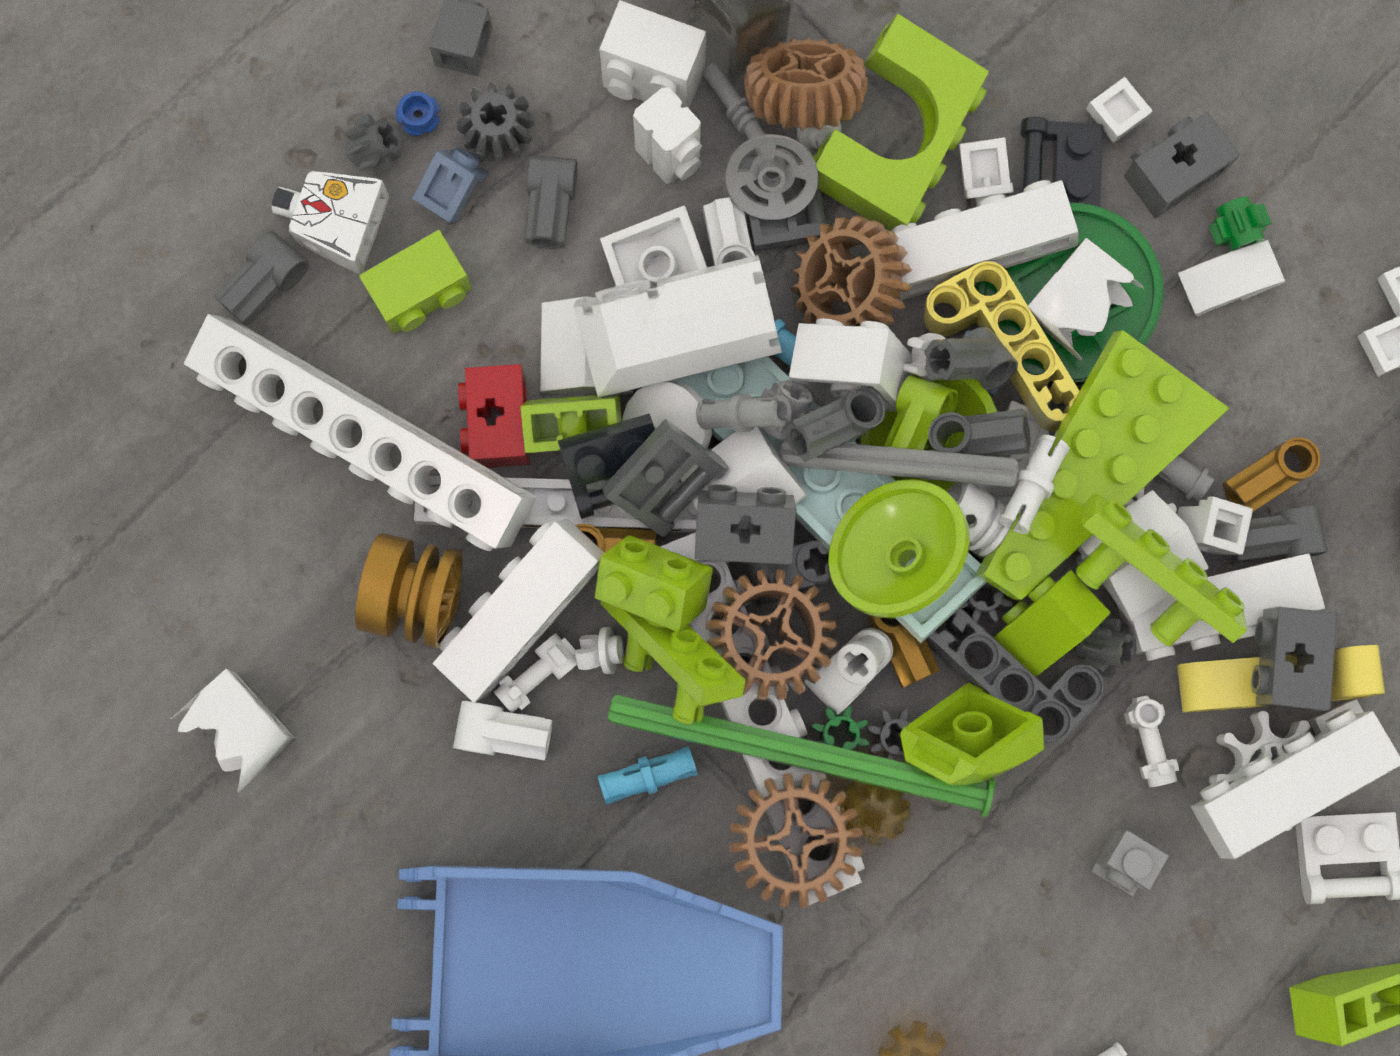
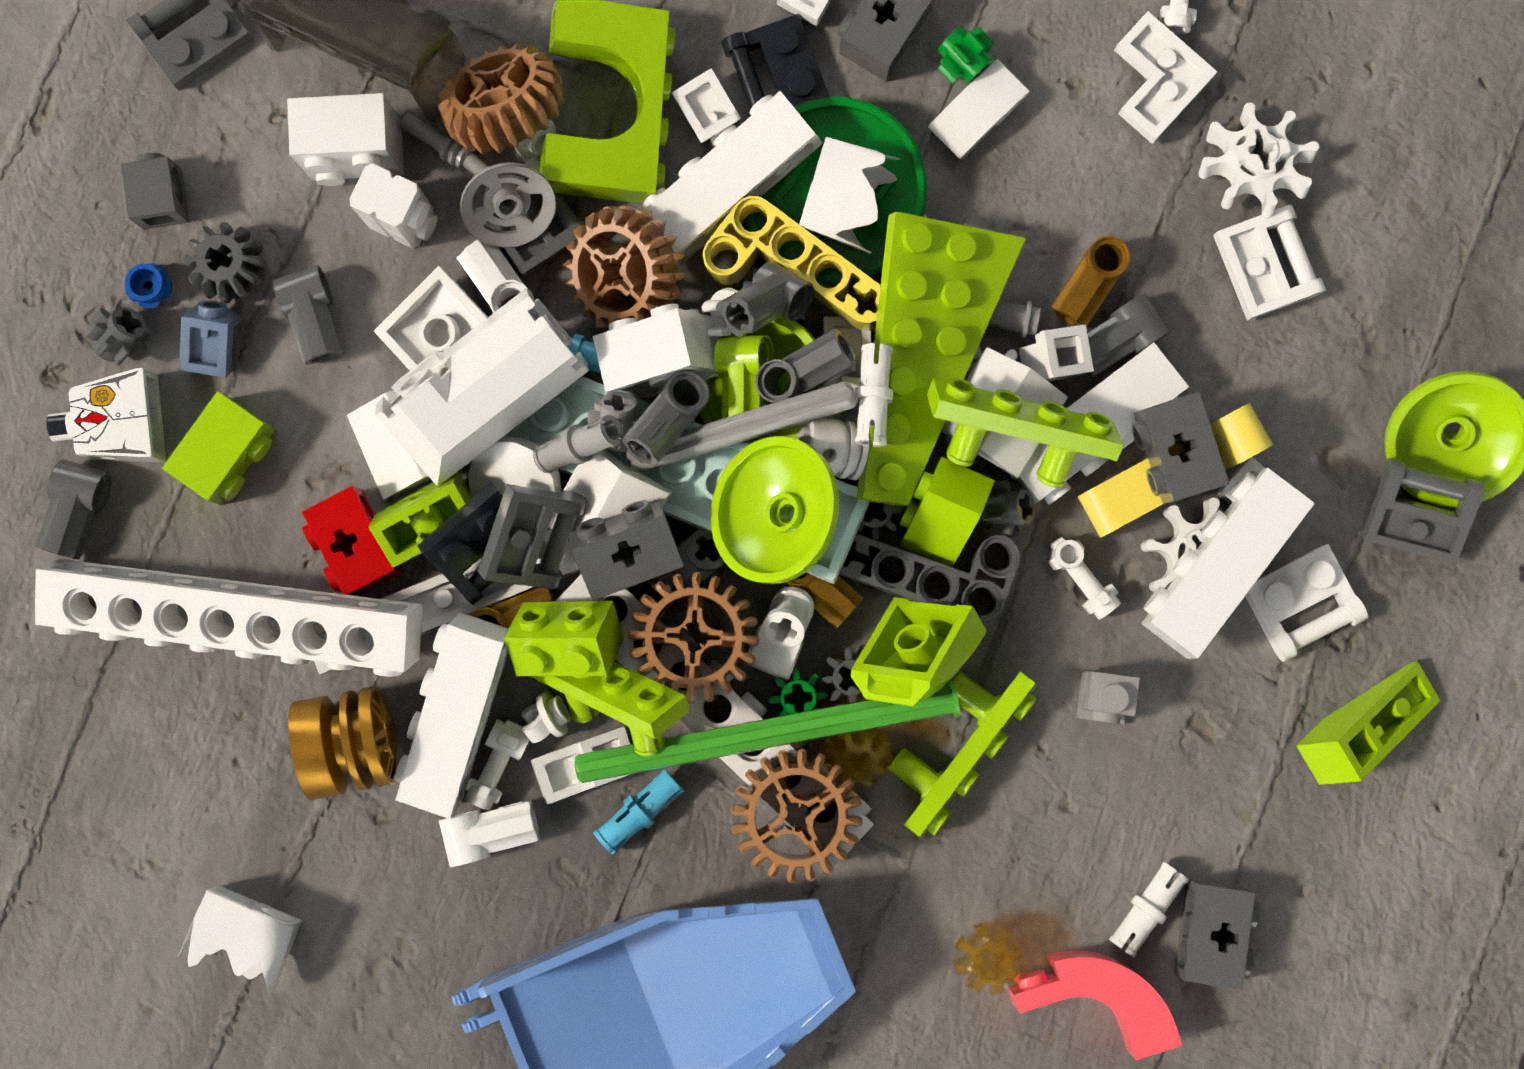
camera: 20 degrees left, 5 degrees up
(590, 705) = (557, 769): none -> white slope
(959, 875) = (959, 777): none -> lime plate

